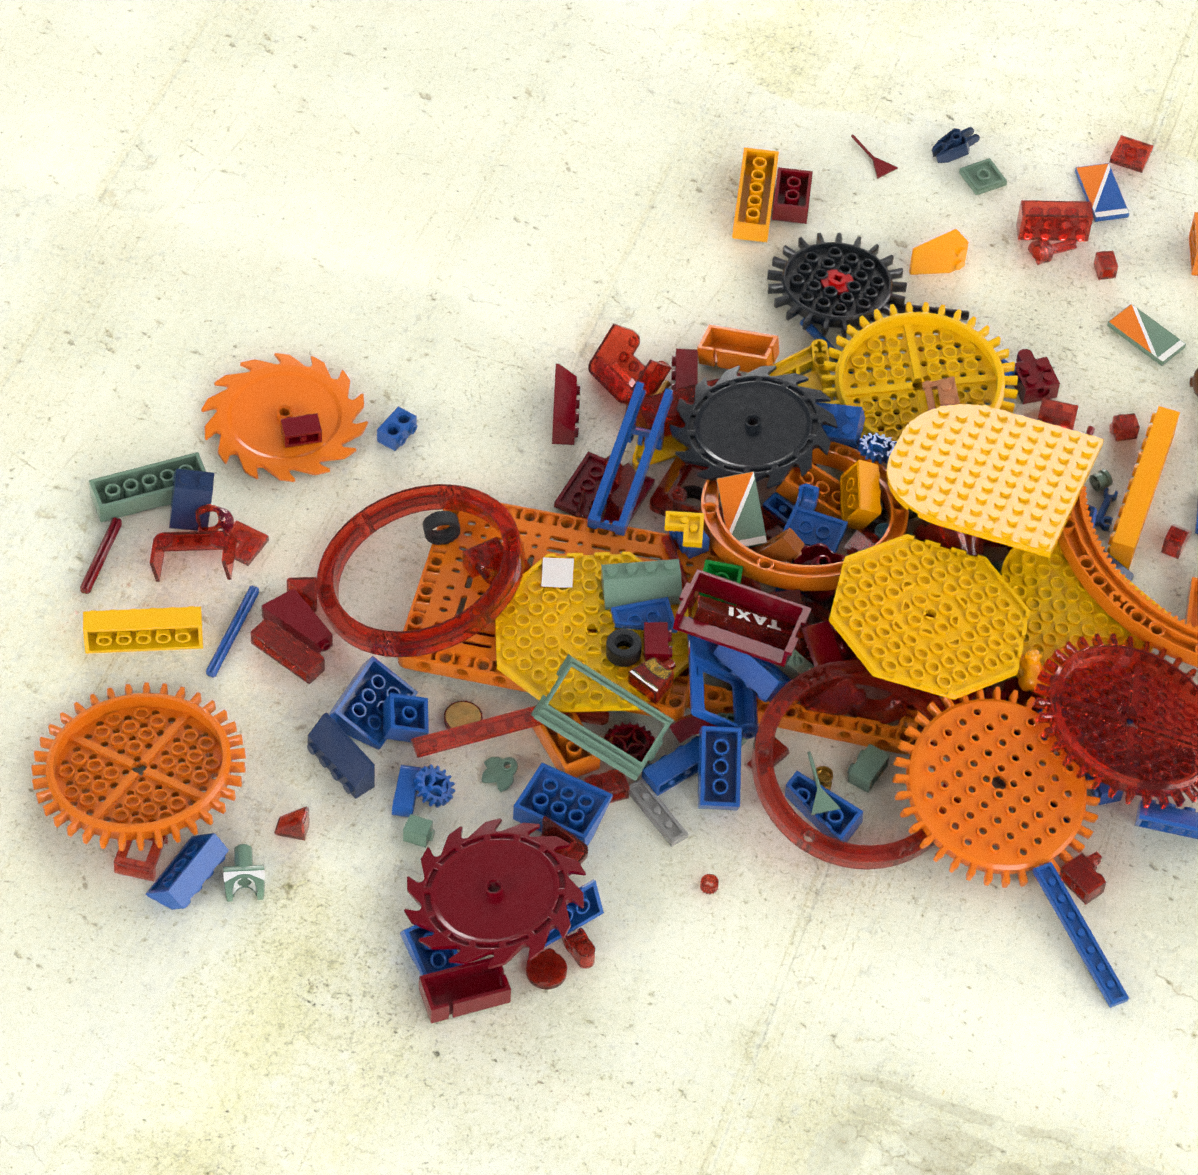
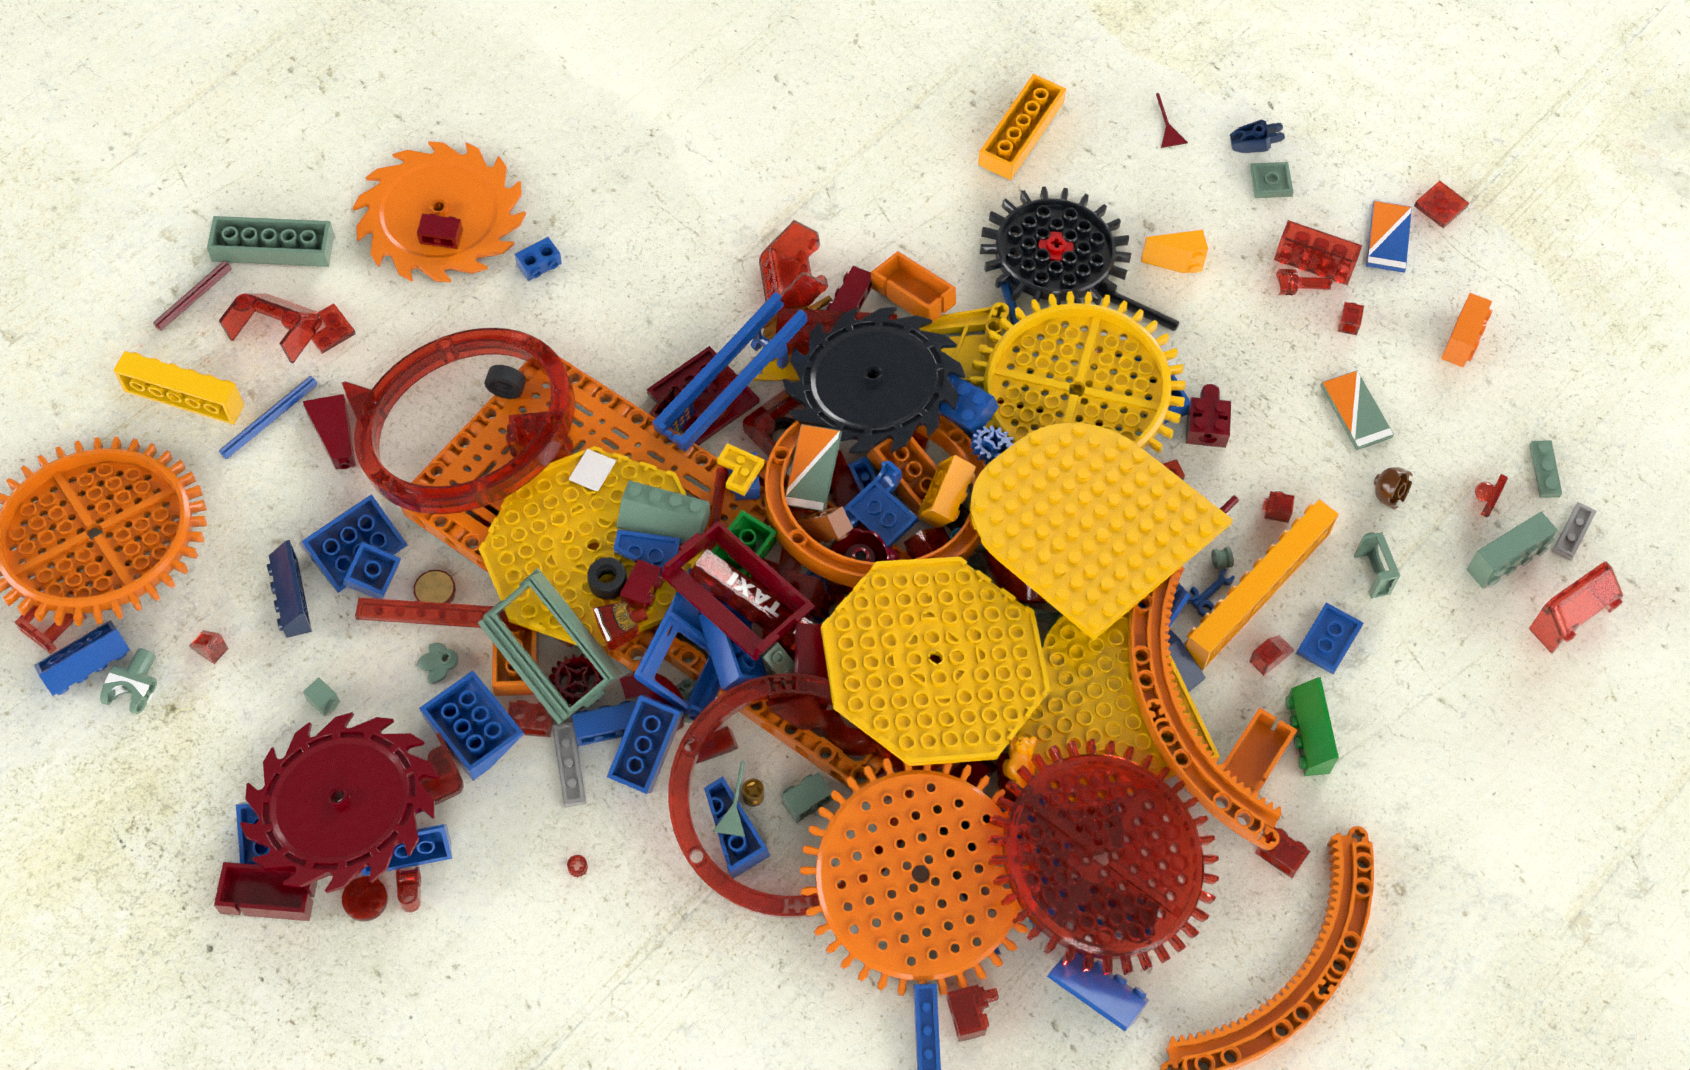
camera: 25 degrees right, 10 degrees up
(189, 492) = (296, 268): dark blue slope -> none
(225, 518) = (317, 298): clear red piece -> none
(288, 650) = (303, 457): clear red brick -> none
(405, 794) = (334, 649): blue beam -> none
(434, 786) = (362, 662): blue gear -> none
(565, 407) = (710, 289): dark red slope -> none
(792, 195) = (1058, 139): dark red brick -> none
(946, 389) = (1096, 410): nougat plate -> none
(1058, 413) = (1212, 469): clear red brick -> none

